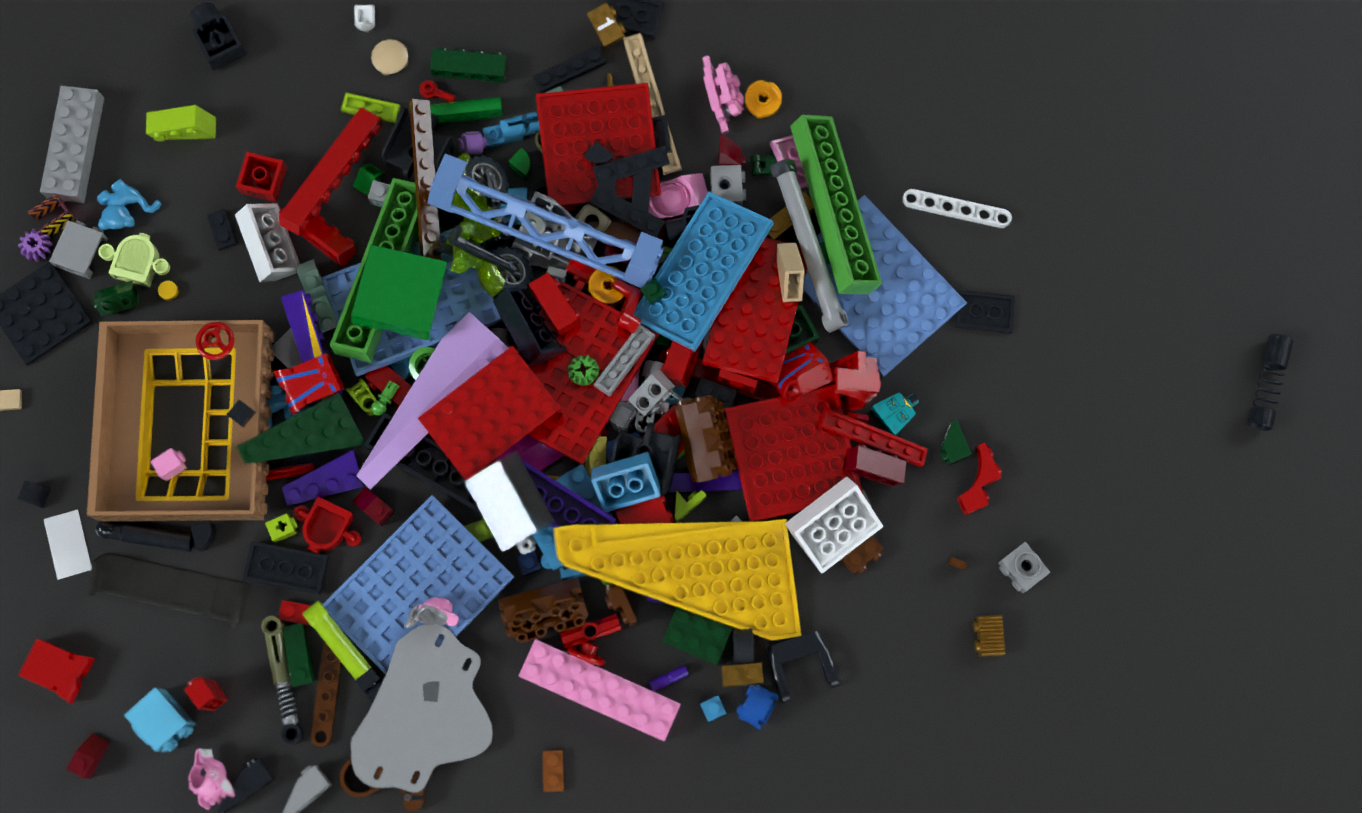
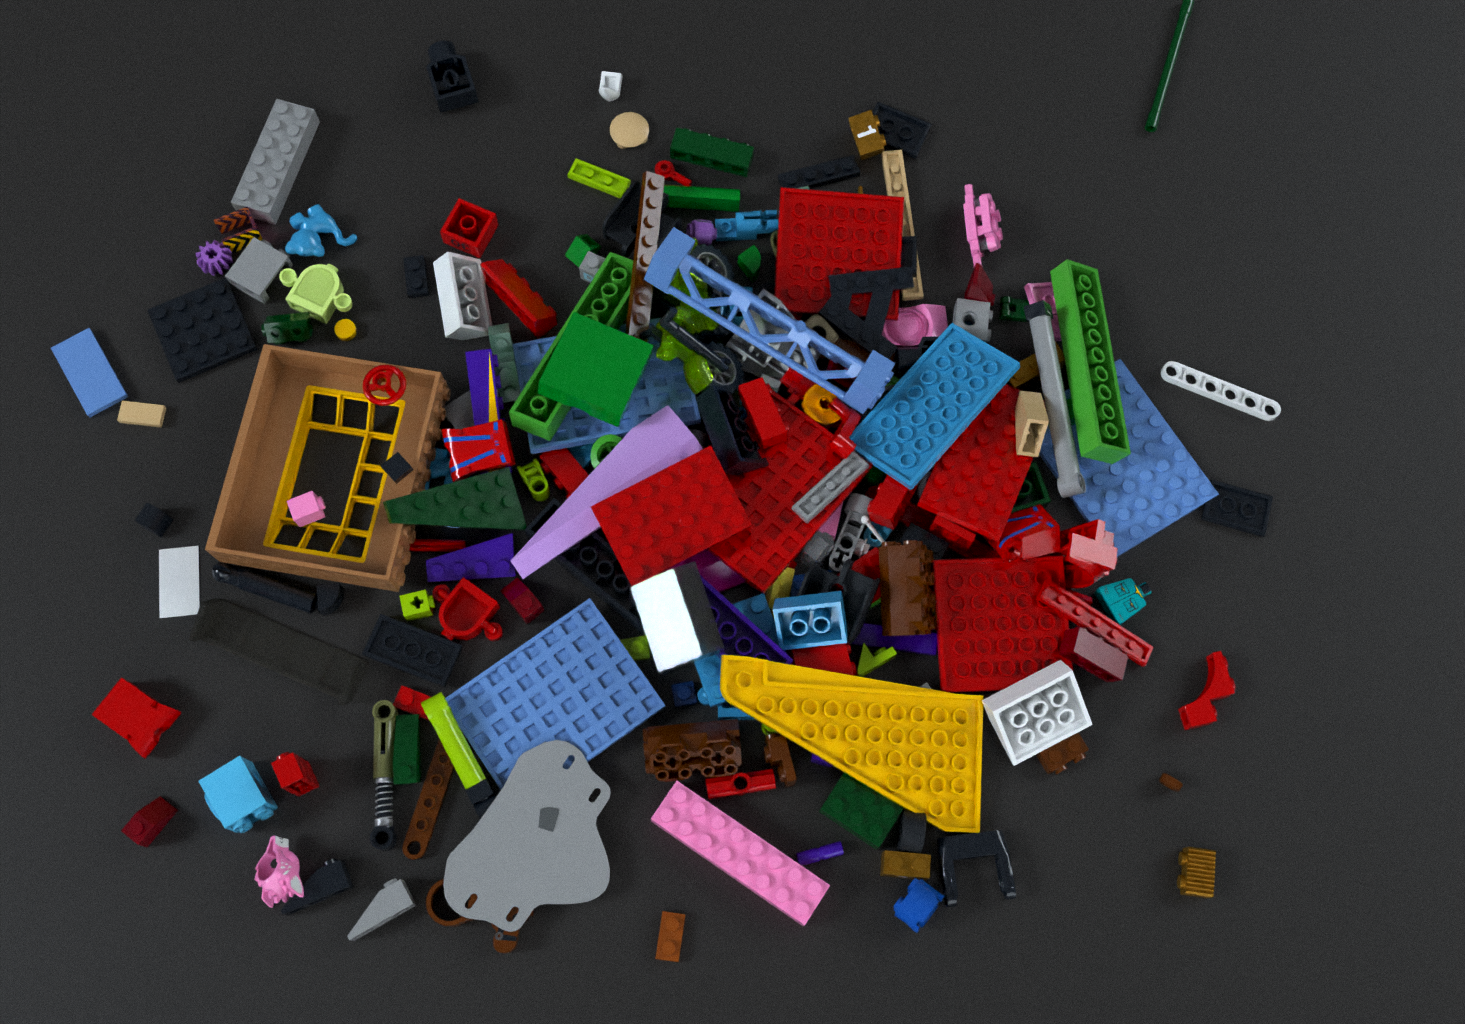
camera: 10 degrees right, 5 degrees down
(181, 123) = (395, 159): lime wedge -> none
(329, 172) = (543, 233): red brick -> none
(387, 394) = (549, 491): bright green pin -> none
(433, 611) = (567, 728): hair -> none
(531, 545) = (678, 672): white plate -> none
(587, 653) = (733, 807): red piece -> none
(591, 374) = (790, 495): bright green gear -> none
(597, 155) = (837, 263): black brick -> none
(650, 391) = (853, 525): light grey brick -> none
(653, 291) = (874, 418): dark green plate -> none
(713, 708) = (865, 898): dark azure plate -> none
(765, 89) = (1023, 250): light orange plate -> none
(954, 446) = (1184, 648): dark green slope -> none
(1023, 579) = (1233, 798): light grey brick -> none

